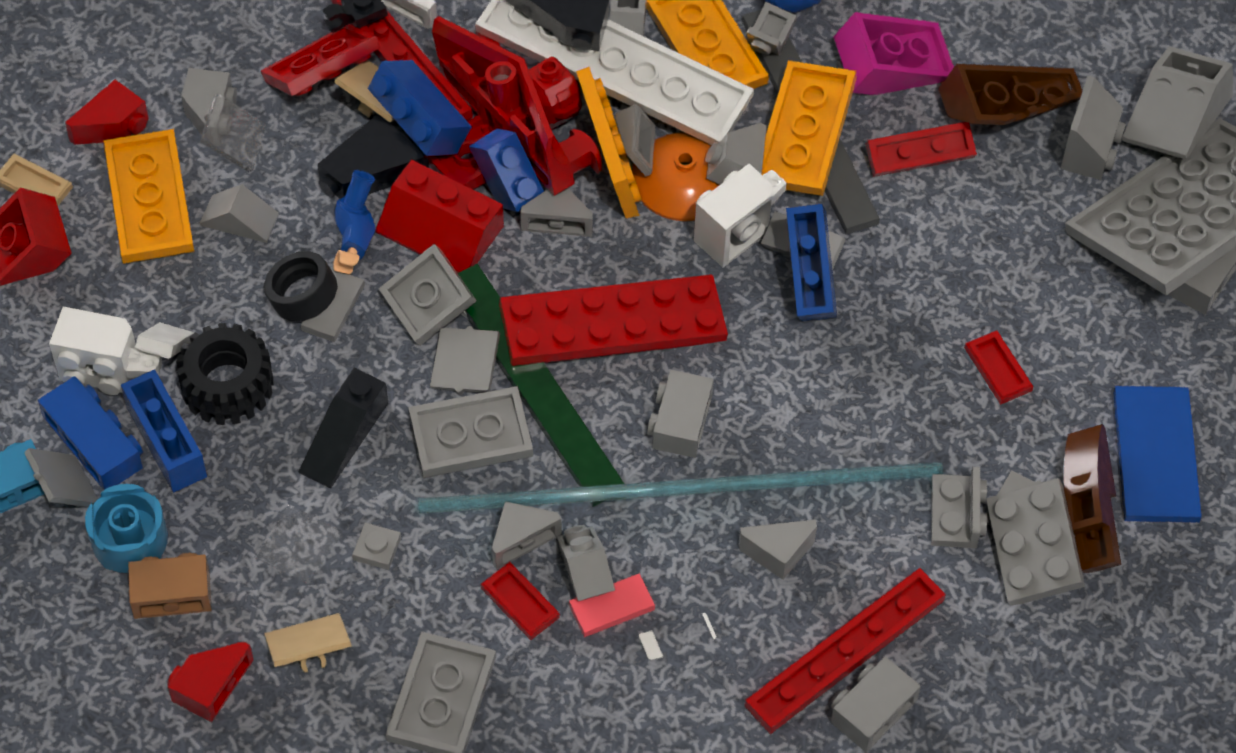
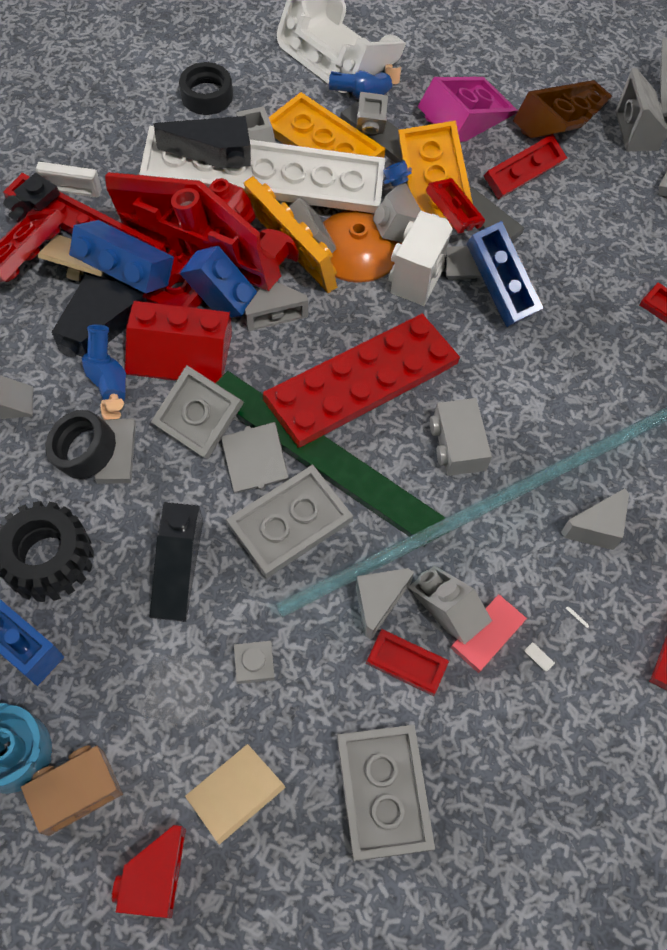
camera: 25 degrees left, 5 degrees up
(757, 111) = (397, 173): none -> blue plate
(793, 192) = (455, 205): none -> red tile

